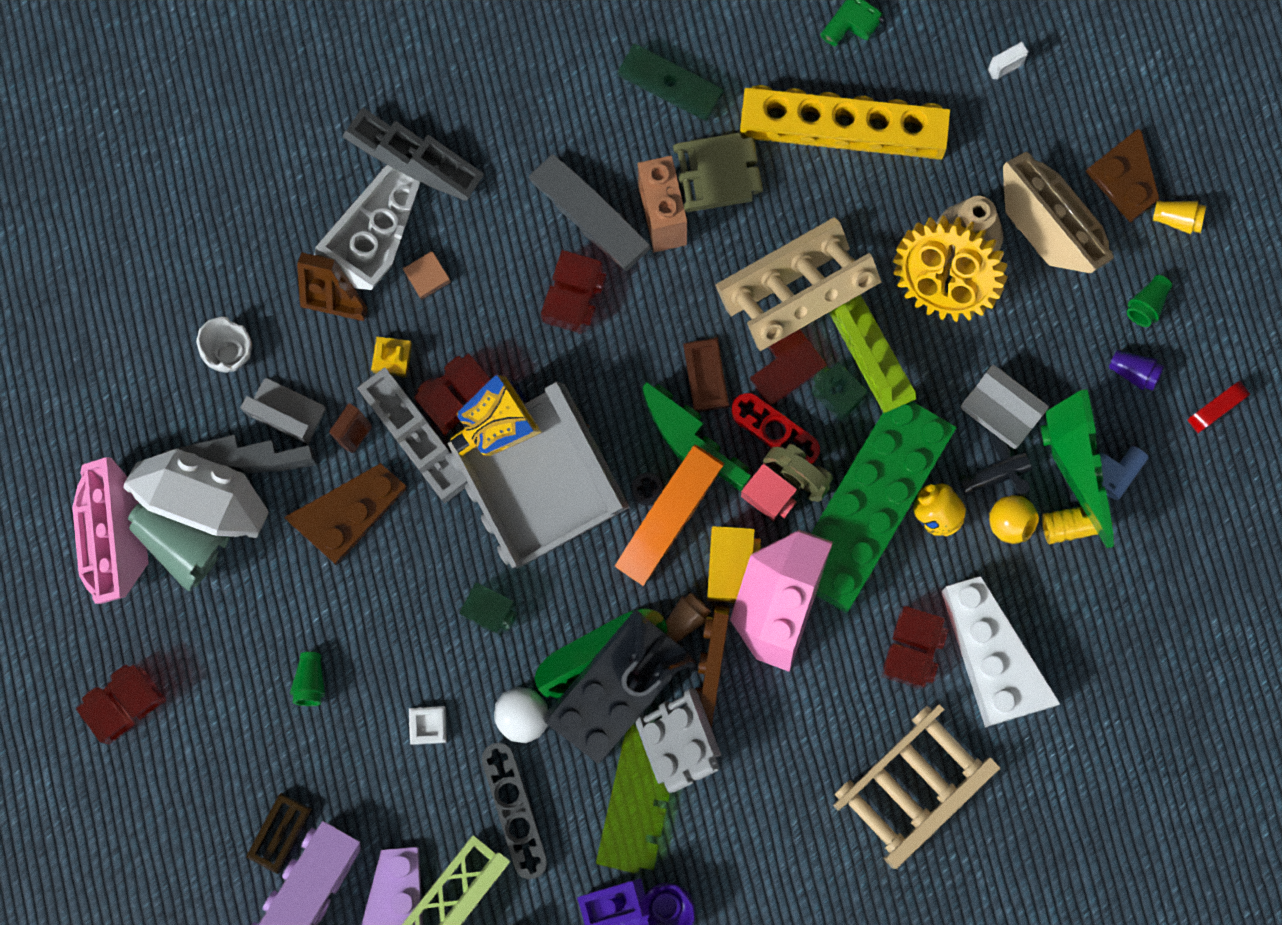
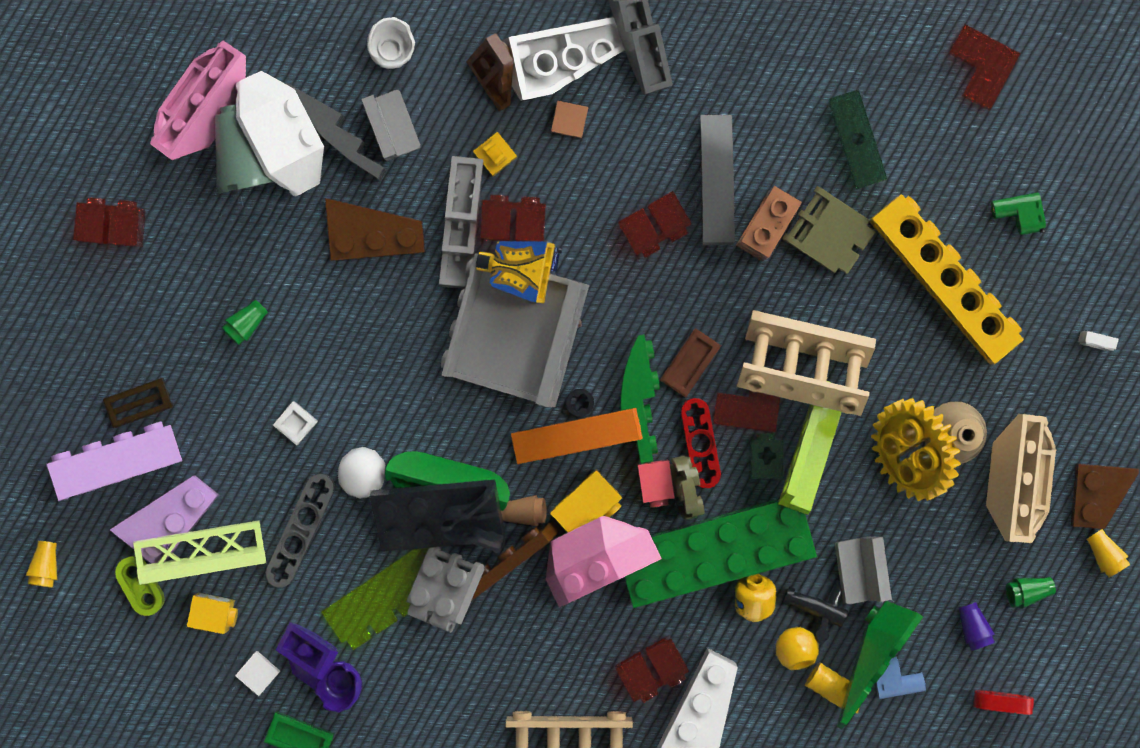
camera: 35 degrees right, 10 degrees up
(350, 428) = (421, 182): copper tile -> none
(489, 610) = (402, 386): clear green brick -> none

